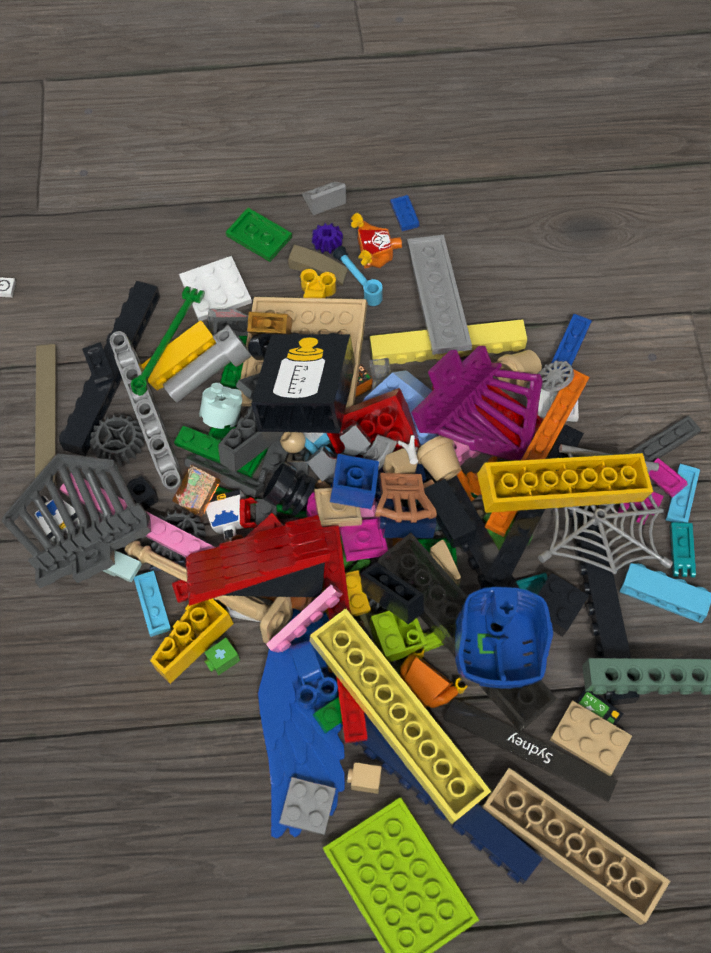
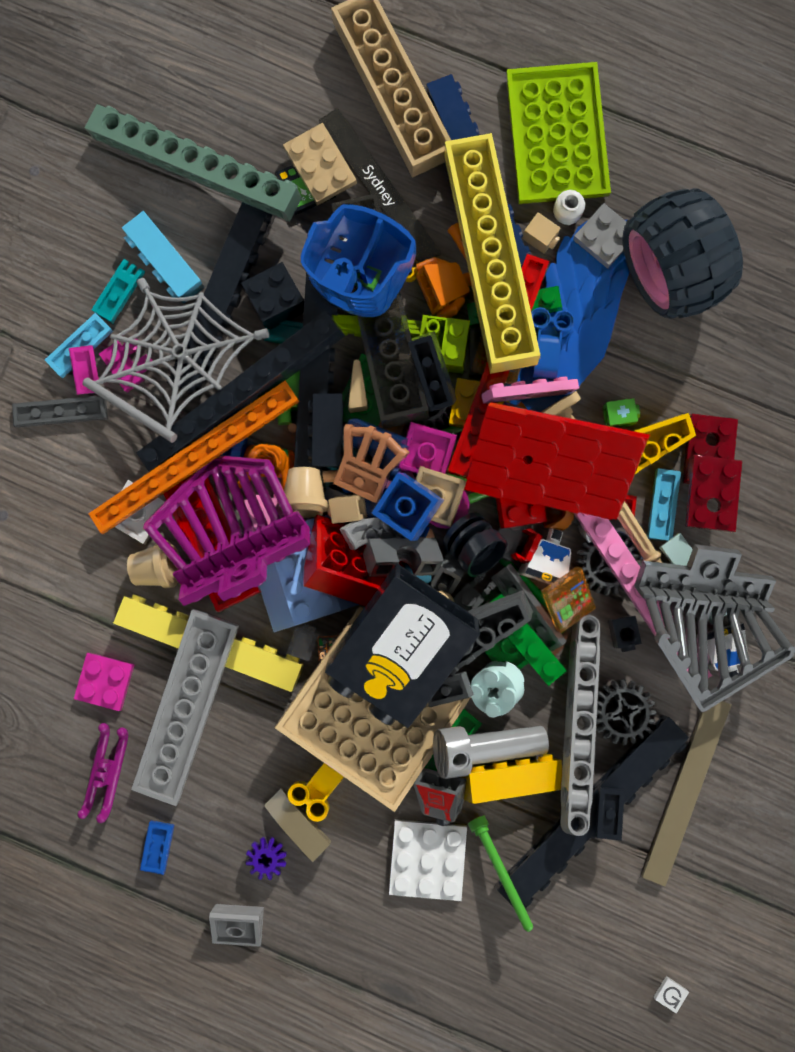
camera: 150 degrees left, 20 degrees up
(123, 644) = (712, 474): none -> dark red bracket
(139, 384) = (515, 807): green hinge -> none
(188, 321) = (480, 827): none -> bright green piece
(232, 796) = (682, 253): none -> black wheel
(258, 345) = (420, 734): black piece -> none
(259, 234) = (342, 909): green plate -> none
(269, 323) = (399, 754): pearl gold brick -> none
(353, 812) = (569, 207): none -> white head
(372, 288) = (262, 824): medium azure piece -> none
(374, 243) = (217, 818): torso -> none
(411, 449) = (329, 514): white bar -> none
(467, 237) = (104, 773): none -> magenta piece
(506, 289) = (104, 681): none -> dark pink plate
(556, 376) = (122, 534): light grey wheel -> none
(564, 482) = (198, 388): yellow brick -> none
(572, 340) = (84, 568): blue plate -> none

